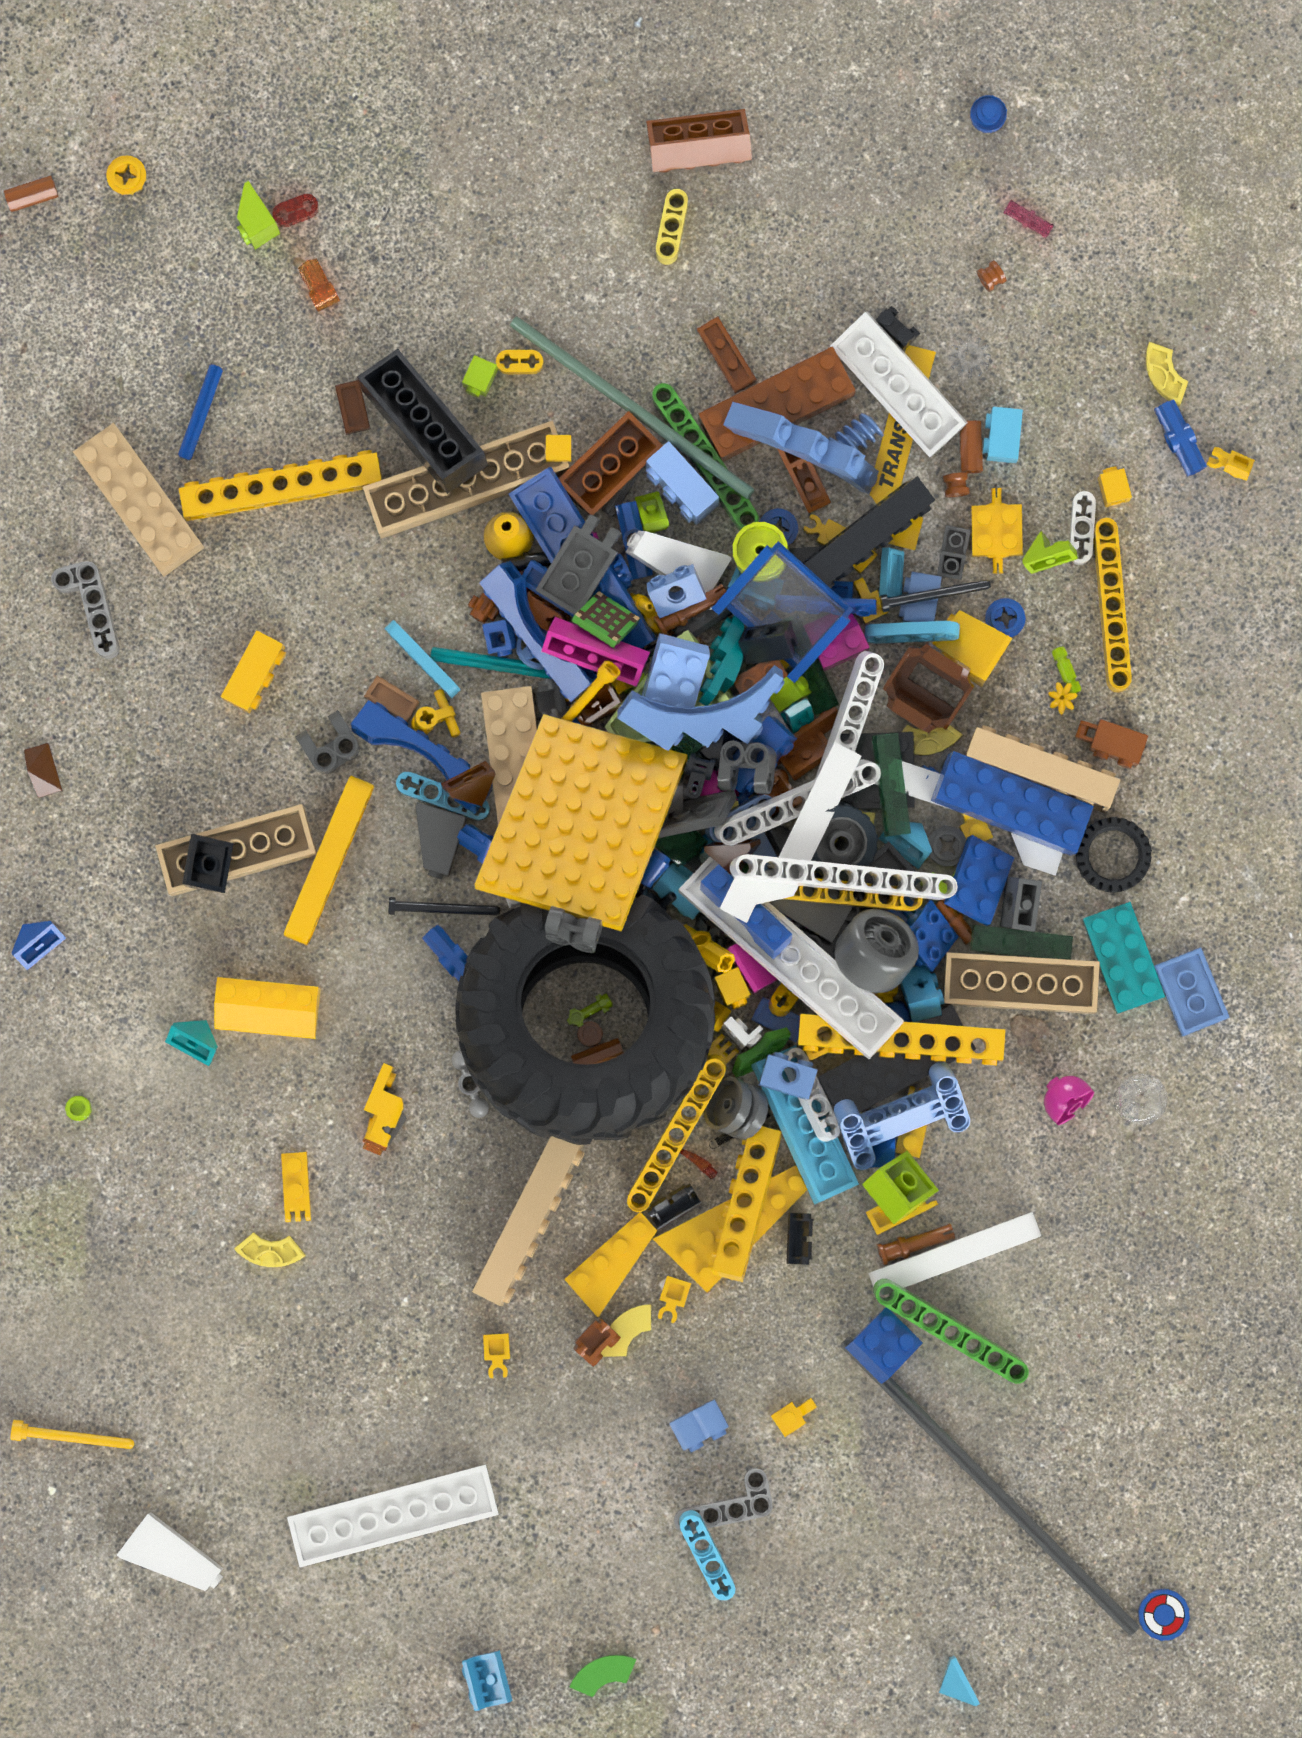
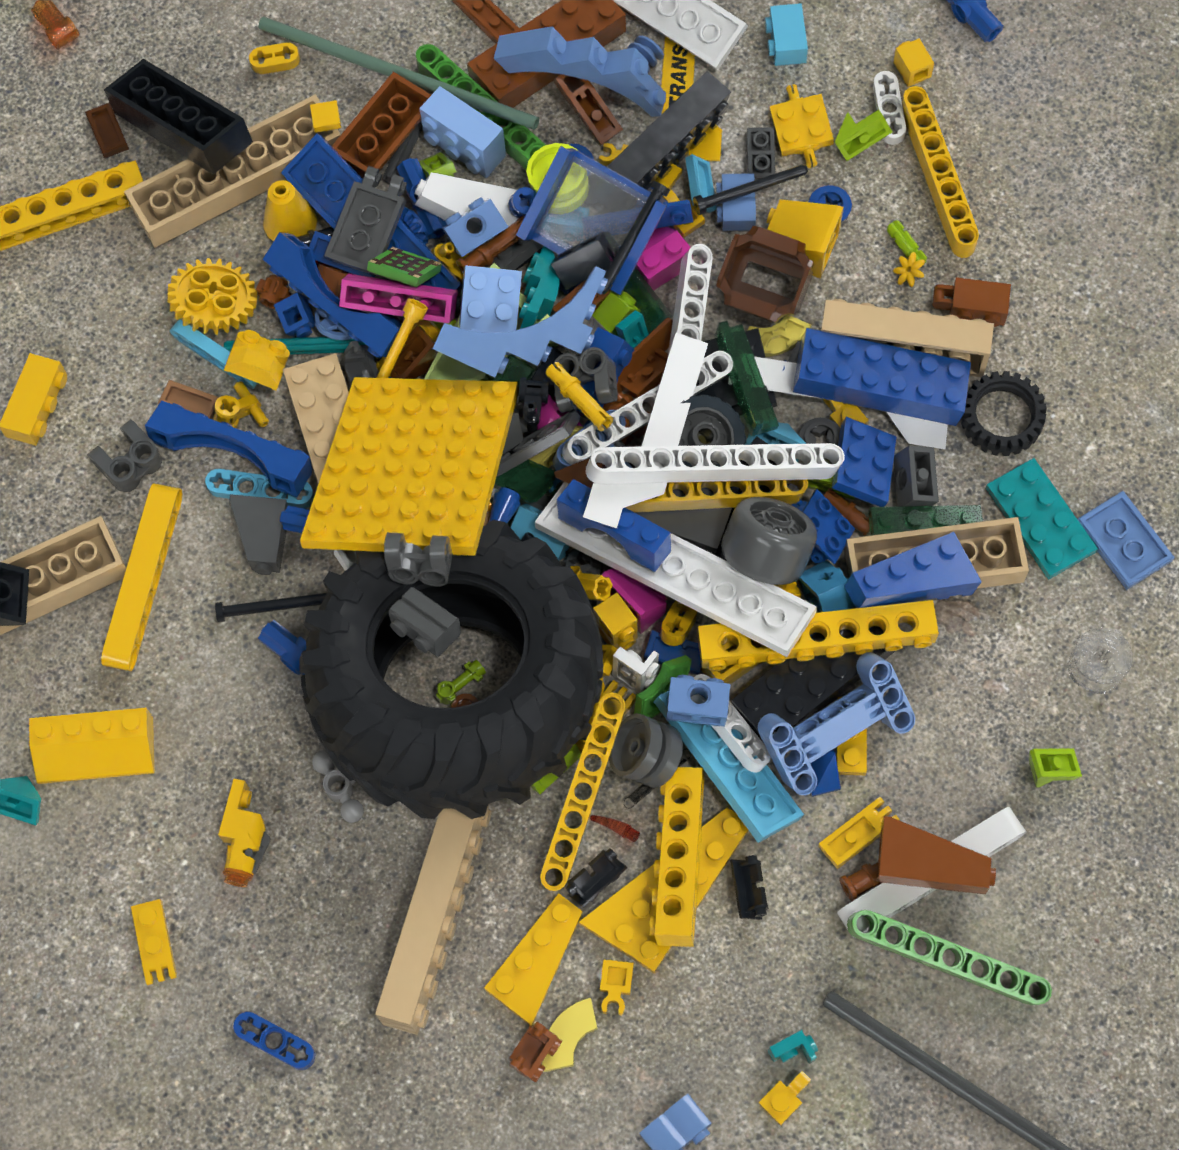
camera: 10 degrees left, 15 degrees down
(270, 1253) = (134, 1024): light yellow tile -> none
(373, 1272) = (259, 1022): none -> blue beam
(422, 622) = (212, 296): none -> yellow gear
(459, 678) = (257, 358): none -> yellow slope
(471, 784) = (287, 459): reddish brown slope -> none
(479, 377) = (234, 75): lime brick -> none
(496, 1349) = (417, 1087): yellow plate -> none
(568, 988) = (424, 622): none -> dark grey brick
(721, 567) = (518, 206): none -> blue wheel
(733, 778) = (571, 389): none -> yellow pin
(803, 1378) = (788, 1048): none -> teal bracket
(846, 601) = (620, 257): none -> black bar
(884, 1345) = (874, 990): blue brick -> none
(900, 1187) = (851, 805): lime slope -> none
(912, 632) = (771, 217): medium azure beam -> none
(947, 1247) = (928, 861): none -> dark orange slope
(956, 484) = (749, 88): dark orange wheel -> none
(971, 448) = (757, 53): dark orange axle -> none
(1006, 1002) = (919, 574): none -> wedge
(1065, 1097) = (1016, 672): dark pink cylinder -> none
(1079, 1183) = (1053, 765): none -> lime slope
(1234, 463) = (1031, 20): yellow plate -> none

